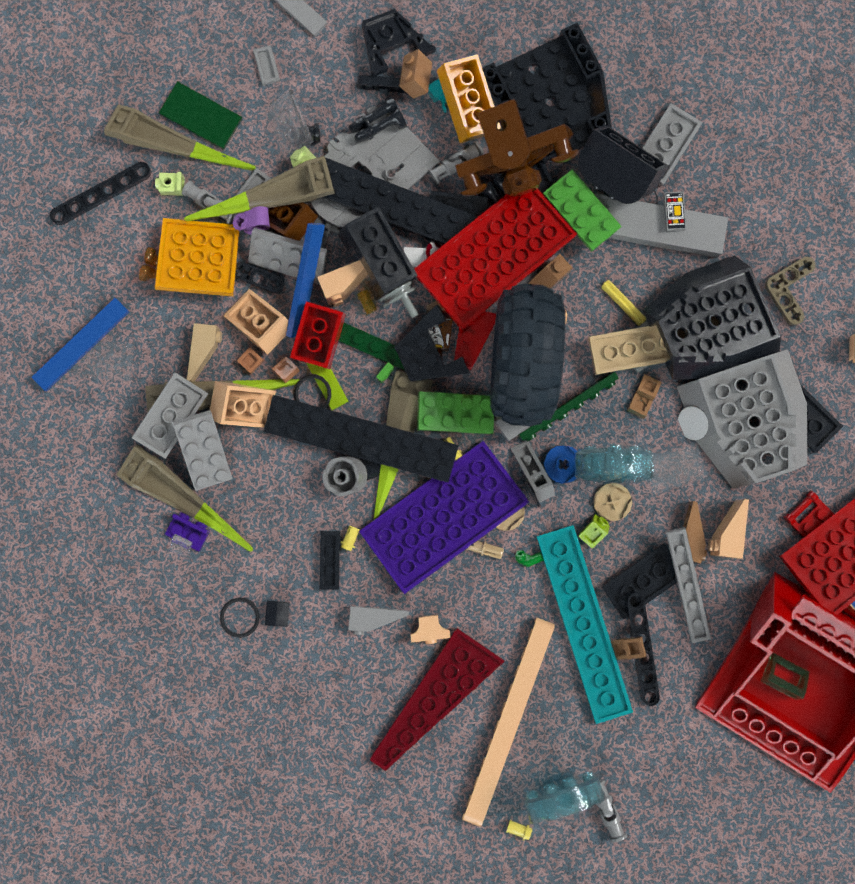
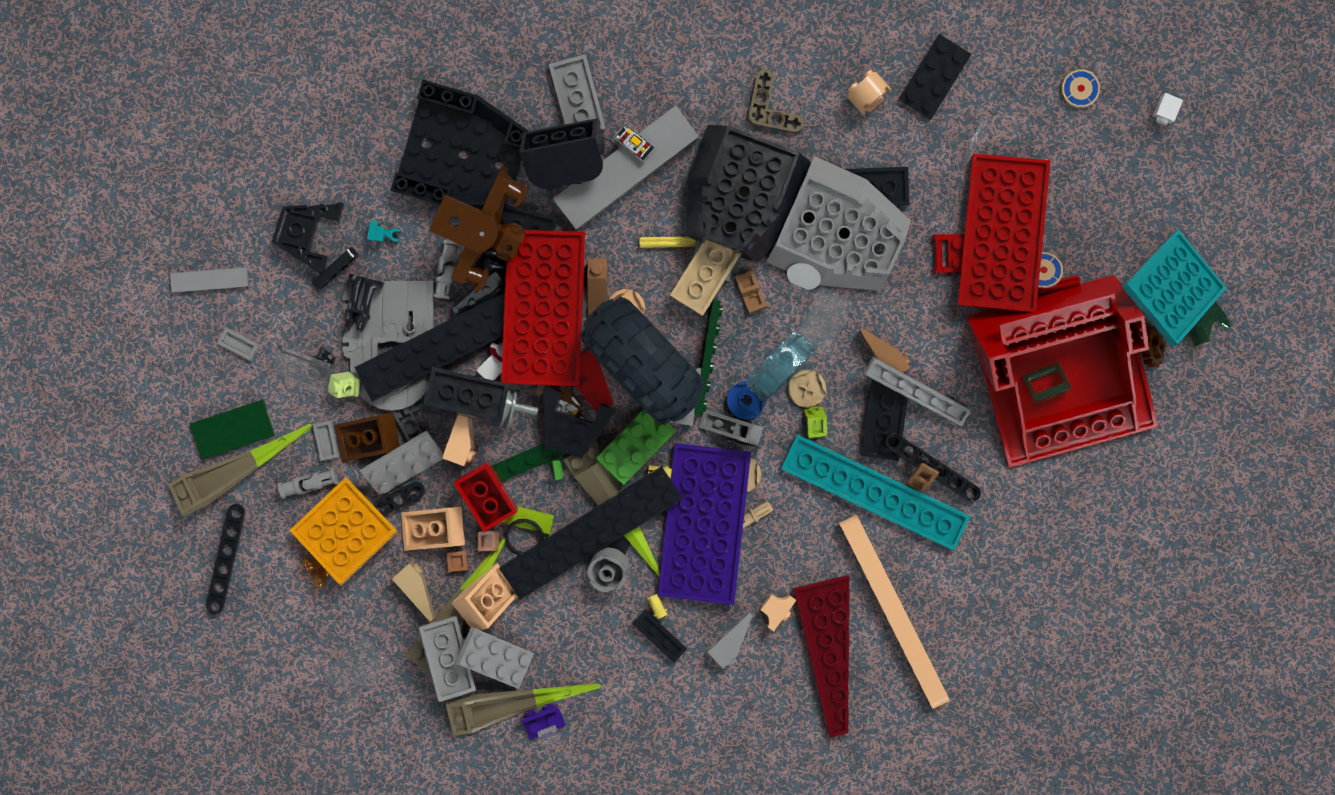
camera: 40 degrees left, 5 degrees up
(80, 344) = (330, 676): blue tile -> none
(174, 188) = (271, 495): yellowish green brick -> none
(223, 612) = (624, 738): black piece -> none
(255, 218) = (352, 465): medium lavender piece -> none
(277, 613) = (663, 709): black piece -> none
(296, 185) = (357, 408): dark tan plate -> none
(305, 275) = (433, 465): blue tile -> none
(366, 302) = (491, 434): clear yellow pin -> none
(415, 74) = (350, 239): medium nougat brick -> none
(465, 95) = (403, 217): light orange brick -> none
(519, 830) = (978, 674): light yellow pin -> none
(527, 560) = (791, 491): green arm -> none
(564, 799) = (983, 624): clear light blue brick -> none
(582, 210) = (570, 211): bright green plate -> none
(613, 824) = (1021, 599): light grey piece -> none
(730, 535) = (909, 328): light nougat slope -> none

